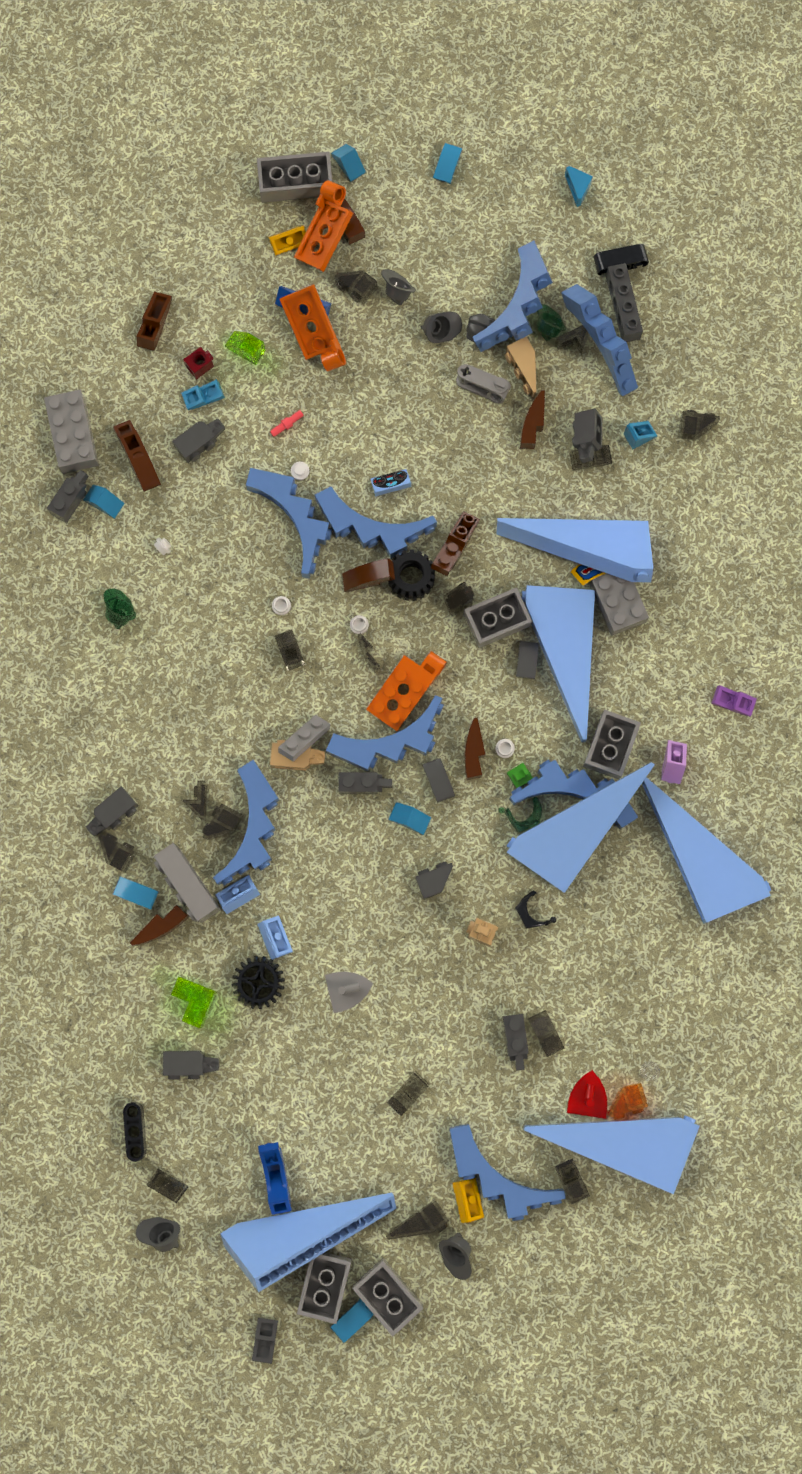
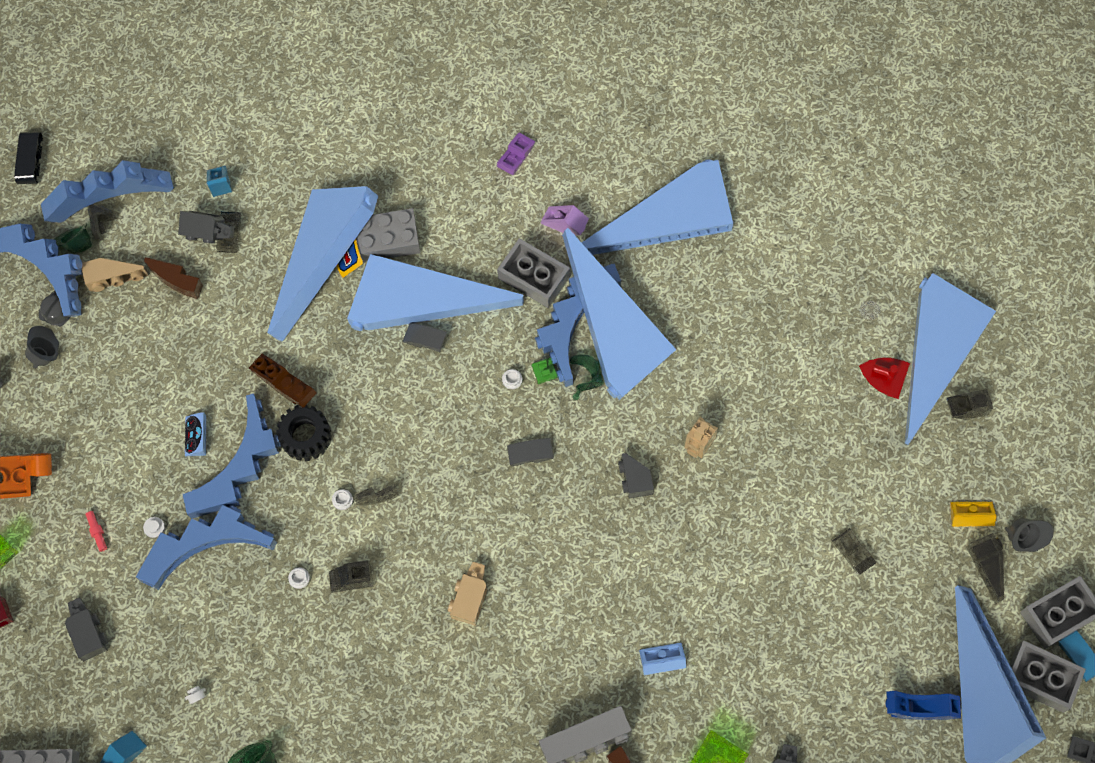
camera: 75 degrees left, 10 degrees down
(137, 455) = (81, 701): reddish brown slope -> none
(199, 806) = (501, 711): clear smoke slope -> none
(200, 396) = (35, 616): dark azure slope -> none
(223, 823) = (525, 686): clear smoke slope -> none
(237, 894) = (606, 689): light blue slope -> none
(241, 978) = (726, 692): black gear -> none
(259, 826) = (564, 662): medium blue arch -> none
(304, 738) = (453, 579): light grey plate -> none
(346, 989) = (732, 593): light grey shield -> none
(362, 783) = (516, 530): dark grey hinge -> none
(368, 575) = (292, 476): reddish brown slope -> none
(410, 818) = (563, 490): dark azure slope -> none
(415, 737) = (483, 522): medium blue arch -> none
(418, 680) = (420, 449): orange hinge -> none
(459, 598) = (343, 388): clear smoke slope -> none
(473, 751) = (506, 409): reddish brown slope -> none
(483, 383) = (117, 318): light grey piece -> none
(497, 617) = (373, 355): light grey brick -> none
(516, 1039) = (816, 429): dark grey hinge -> none
(516, 1197) = (934, 500): medium blue arch -> none
(526, 918) = (689, 395): black helmet -> none
(546, 1033) = (814, 400): clear smoke slope -> none
(624, 302) = (73, 163): dark grey brick -> none
(628, 1099) = (895, 336): clear orange slope -> none
(694, 424) = (224, 127): clear smoke slope -> none

